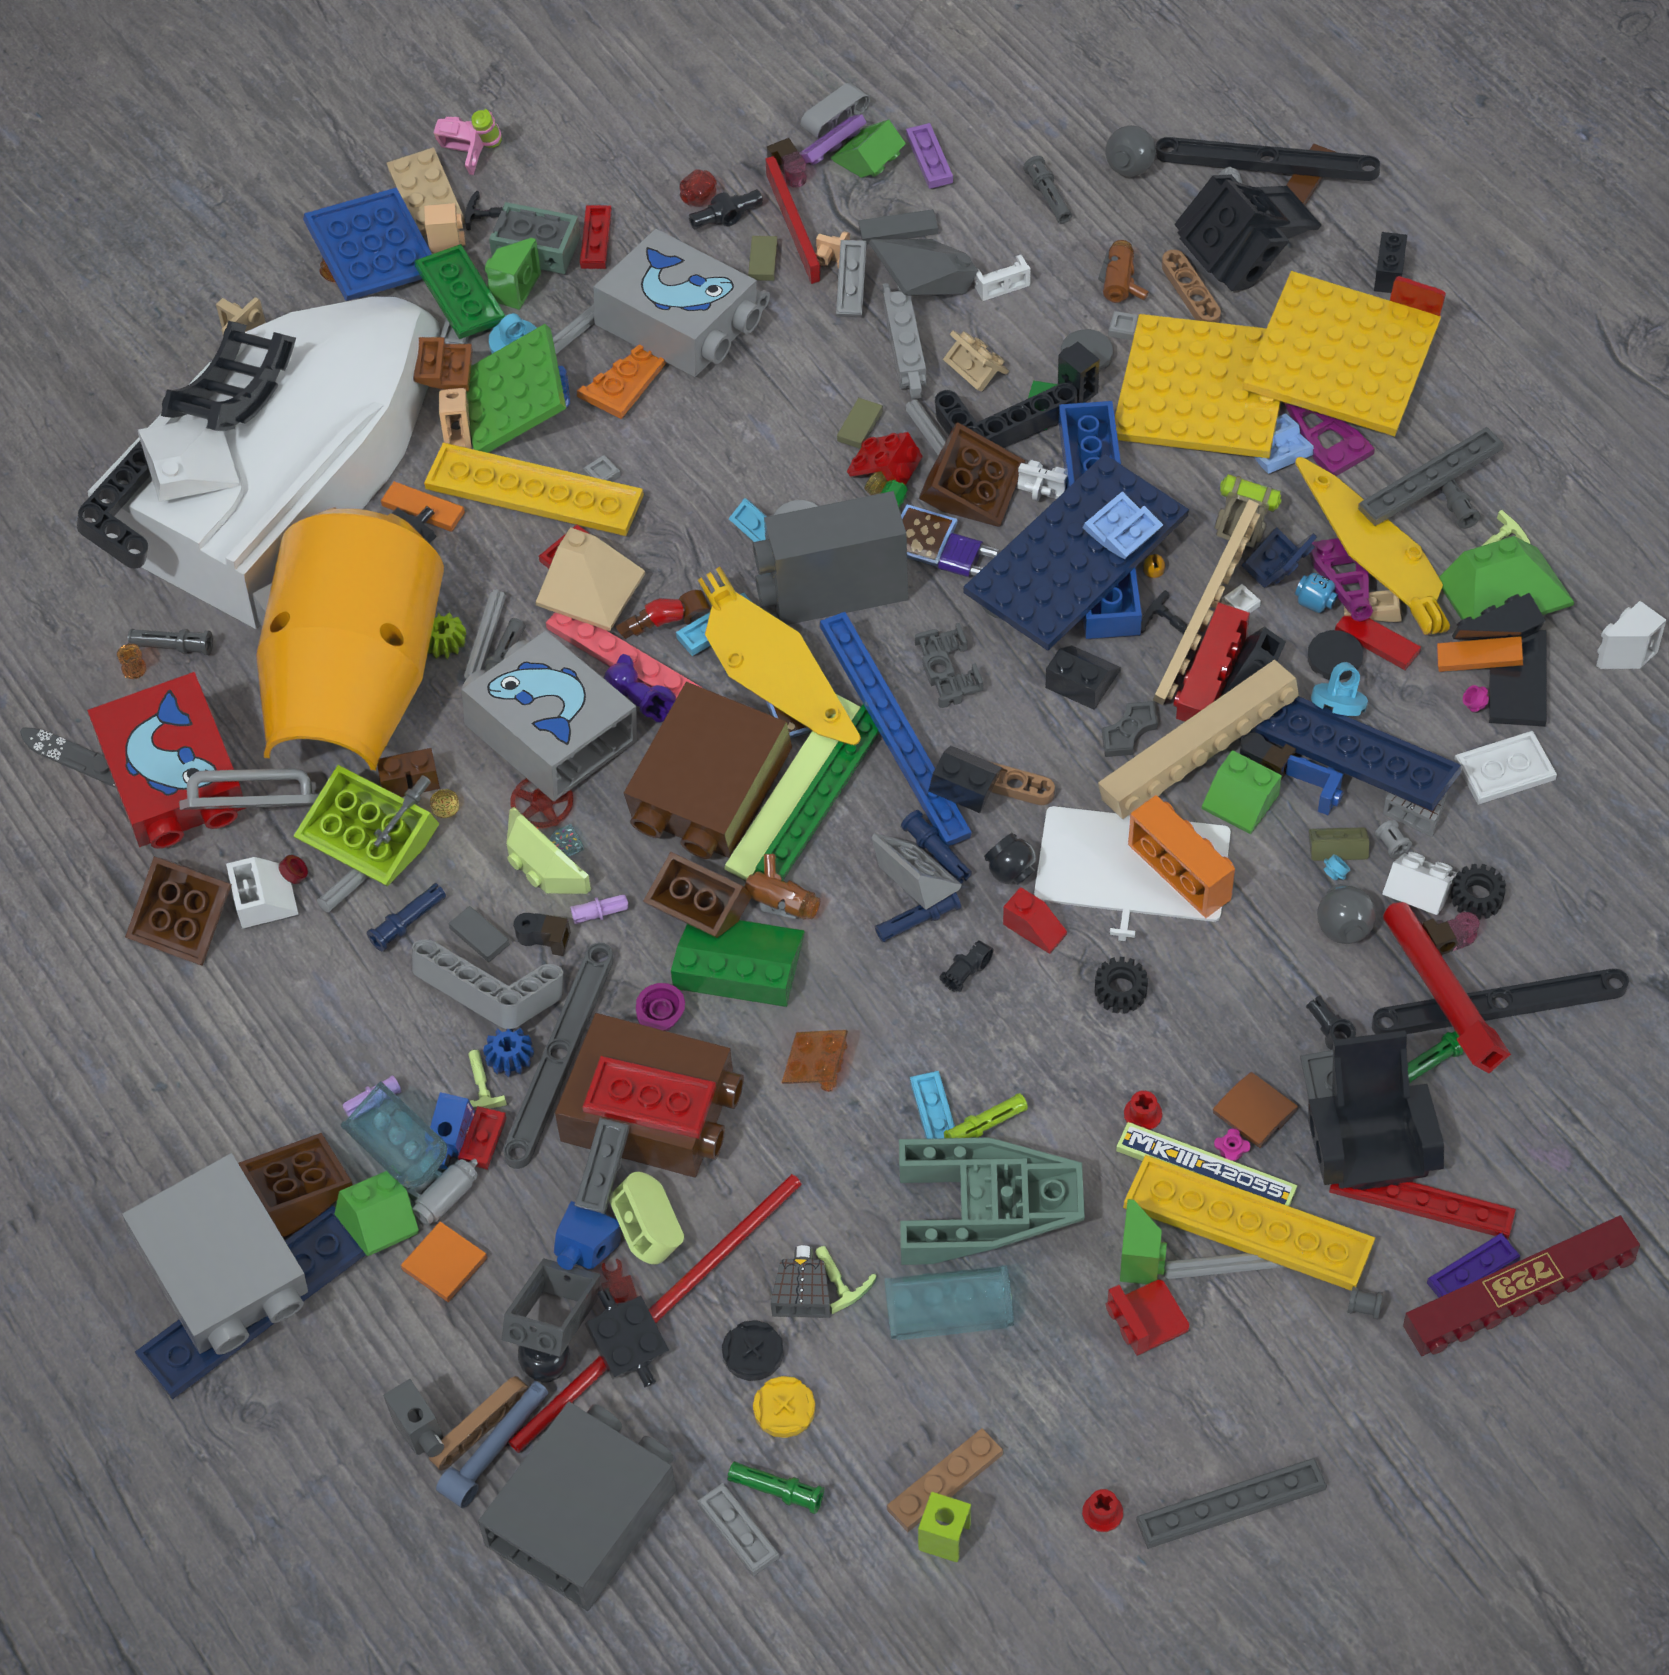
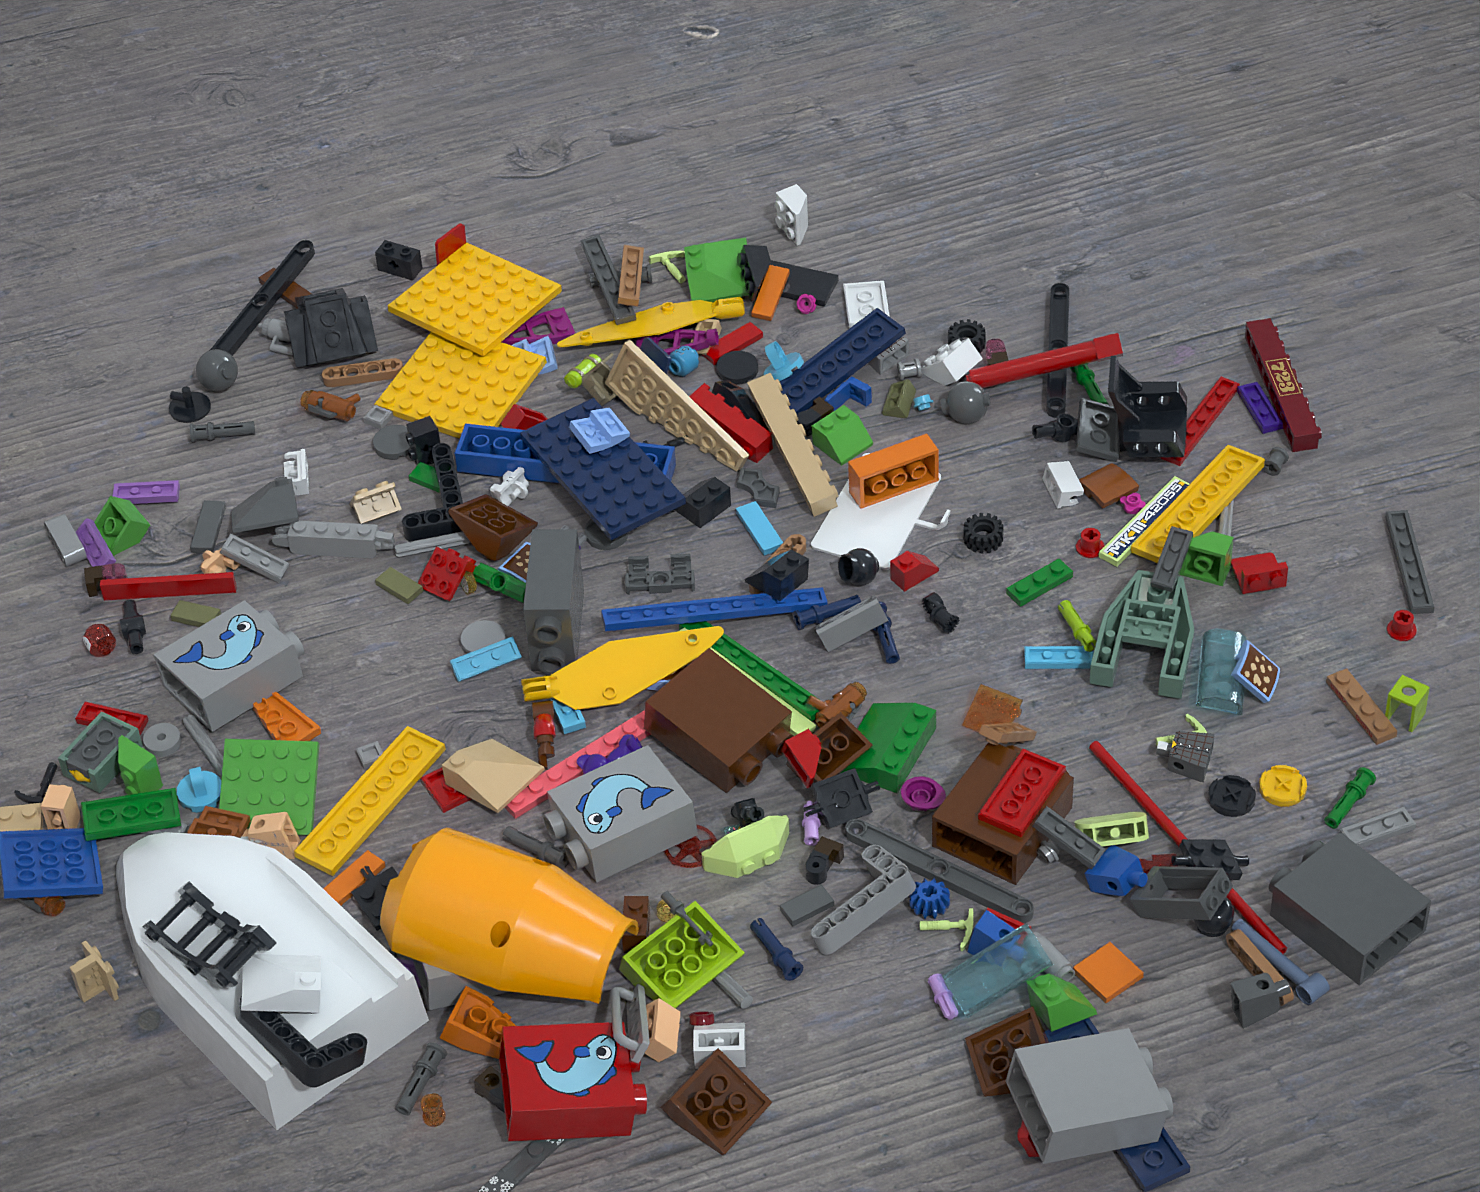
camera: 75 degrees left, 10 degrees down
(234, 683) = (476, 1024): none -> orange wedge
(263, 831) = (663, 1029): none -> light nougat brick
(576, 278) = (153, 739): none -> light grey piece
(576, 833) = (747, 812): none -> black pin
(631, 926) = (841, 798): none -> black plate
(660, 864) = (803, 755): none -> red slope
(759, 1069) = (1007, 733): none -> medium nougat plate
(953, 1336) = (1256, 672): none -> slope
(1058, 1067) = (1039, 582): none -> green plate
(1059, 745) = (759, 527): none -> medium azure tile
(1082, 151) = (188, 405): none -> black shield
(1098, 1192) = (1171, 559): none -> dark grey tile
(1154, 464) = (522, 418): none -> red slope
(1237, 1055) = (1062, 483): none -> white hinge
(1435, 493) = (630, 275): none -> medium nougat plate

